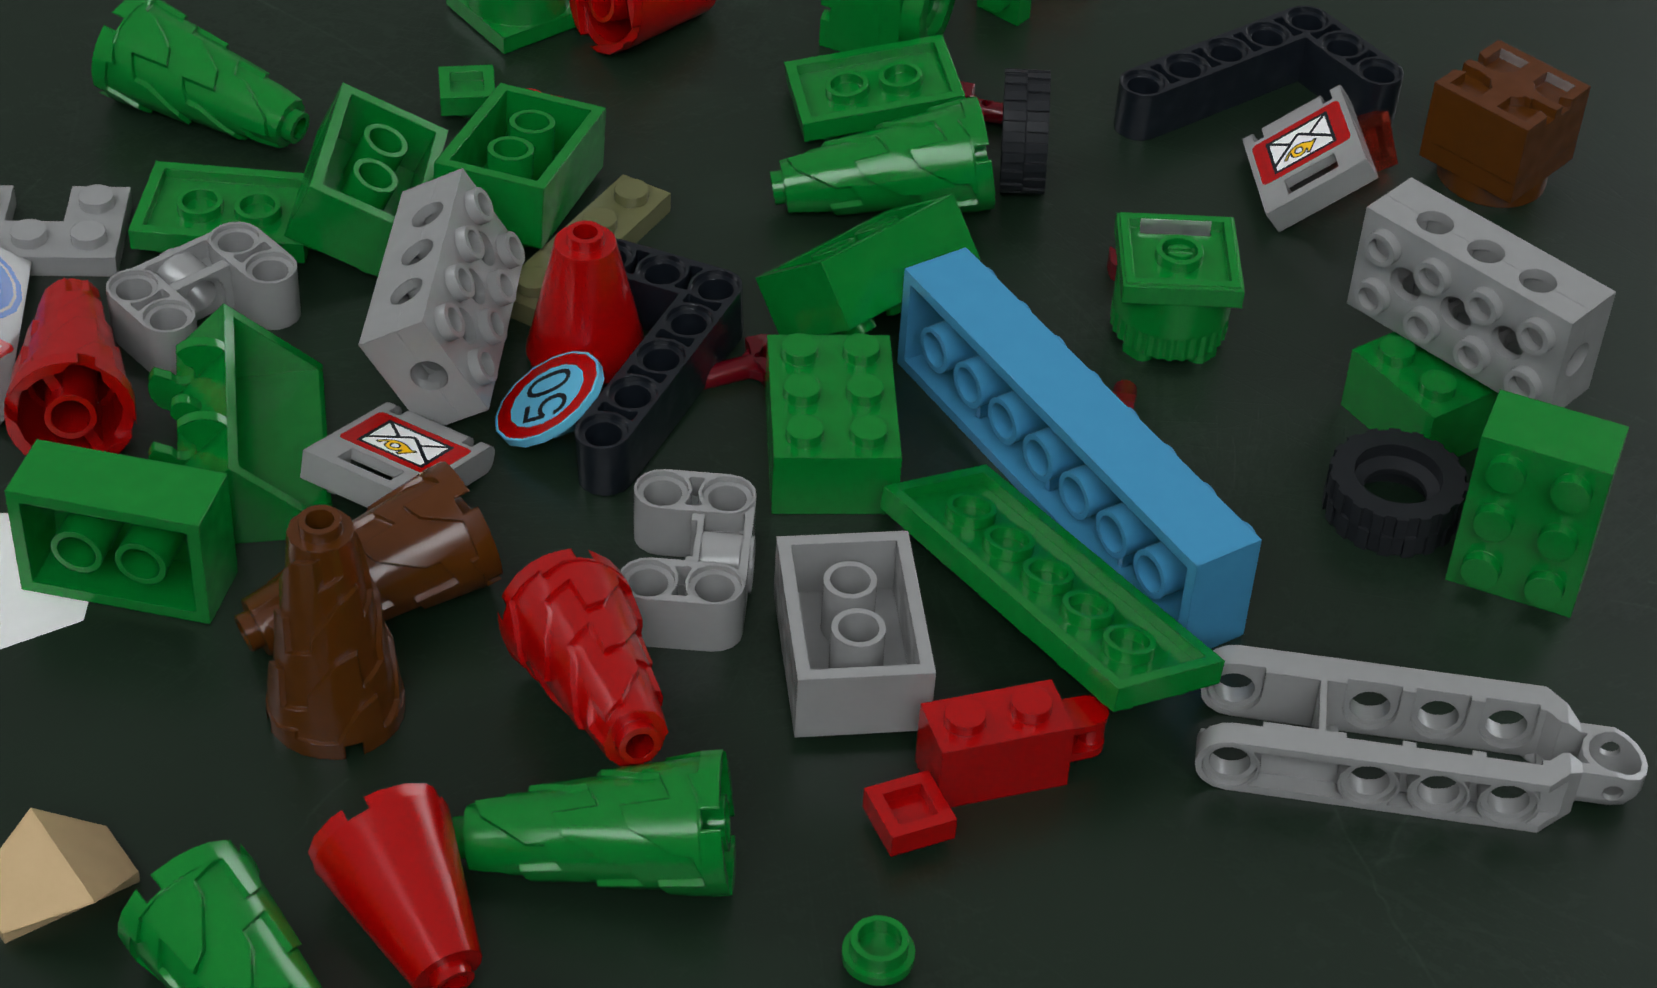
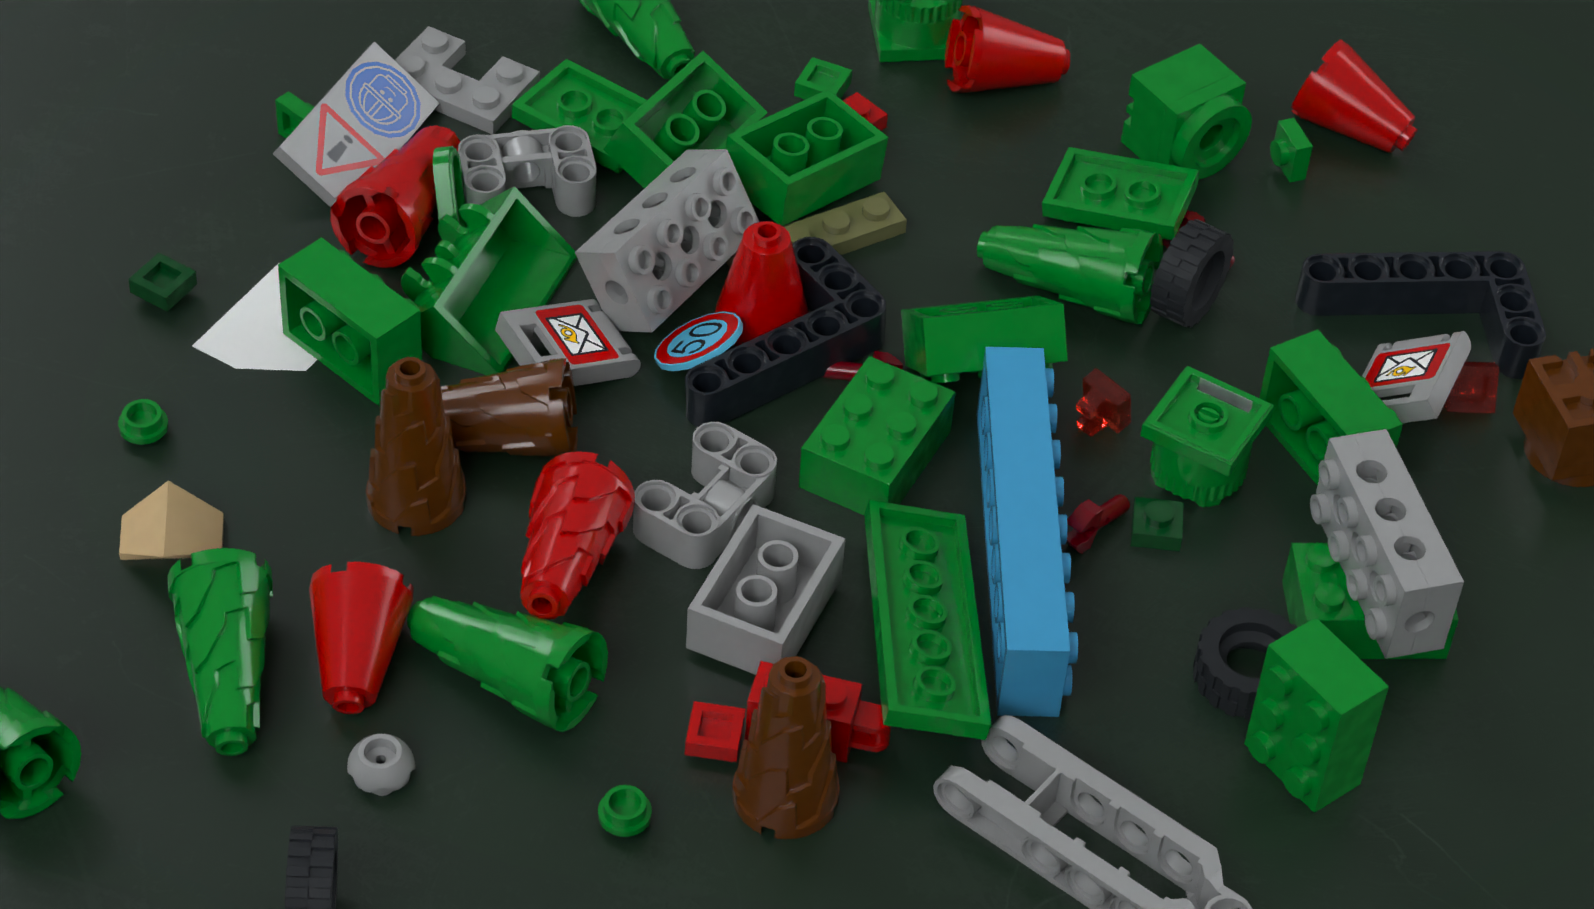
camera: 30 degrees right, 5 degrees up
(128, 336) = (448, 183): none -> green tile
(1038, 287) = (1103, 404): none -> clear red tile
(1041, 790) = (788, 764): none -> reddish brown cone
(1178, 396) = (1157, 524): none -> dark green plate
(1291, 216) = (1319, 399): none -> green brick

